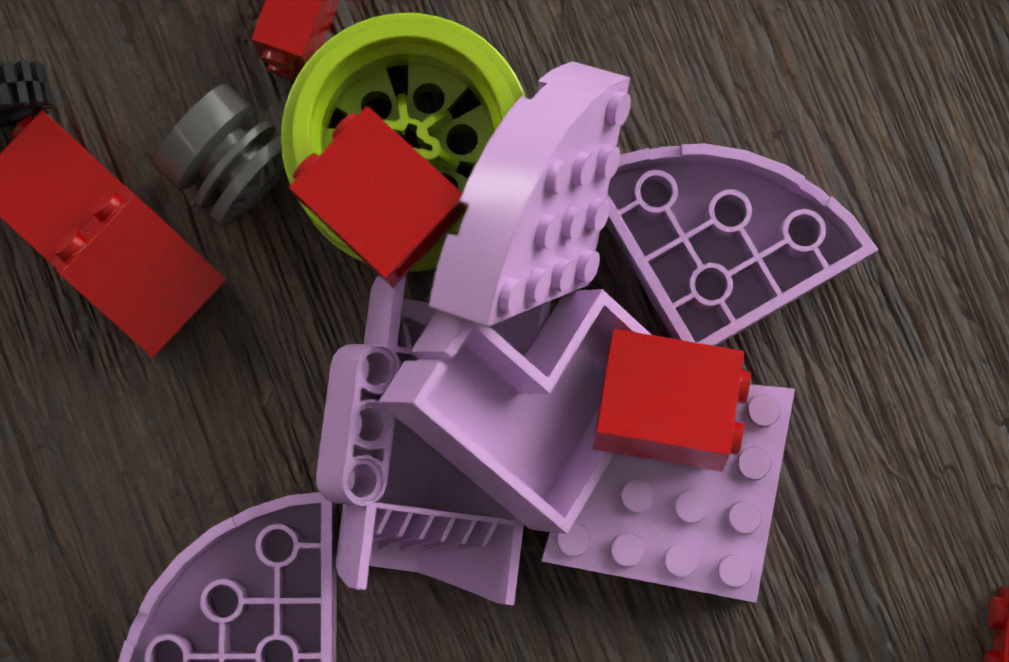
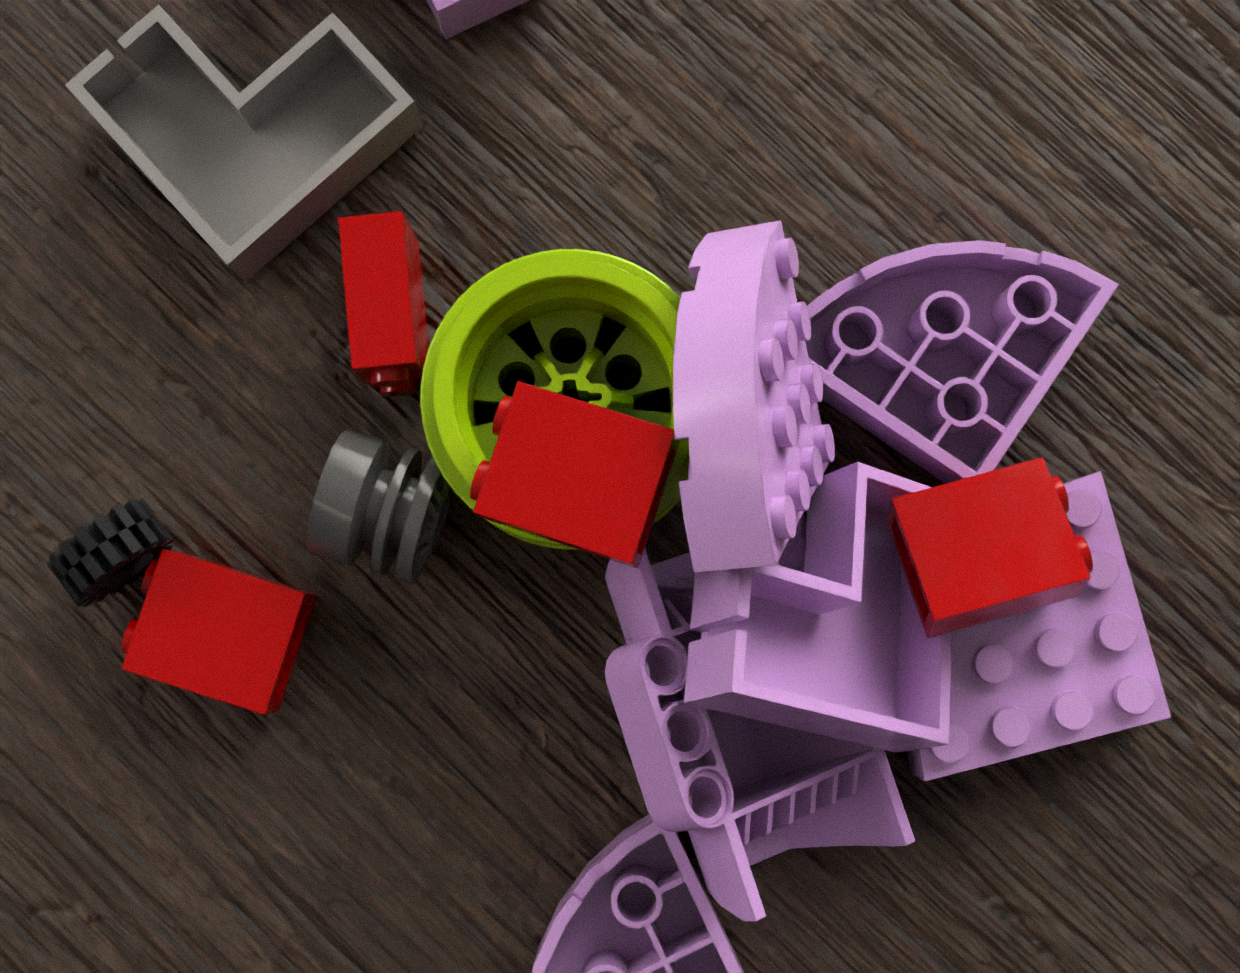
camera: 25 degrees left, 0 degrees up
(136, 269) = (342, 673): red brick -> none

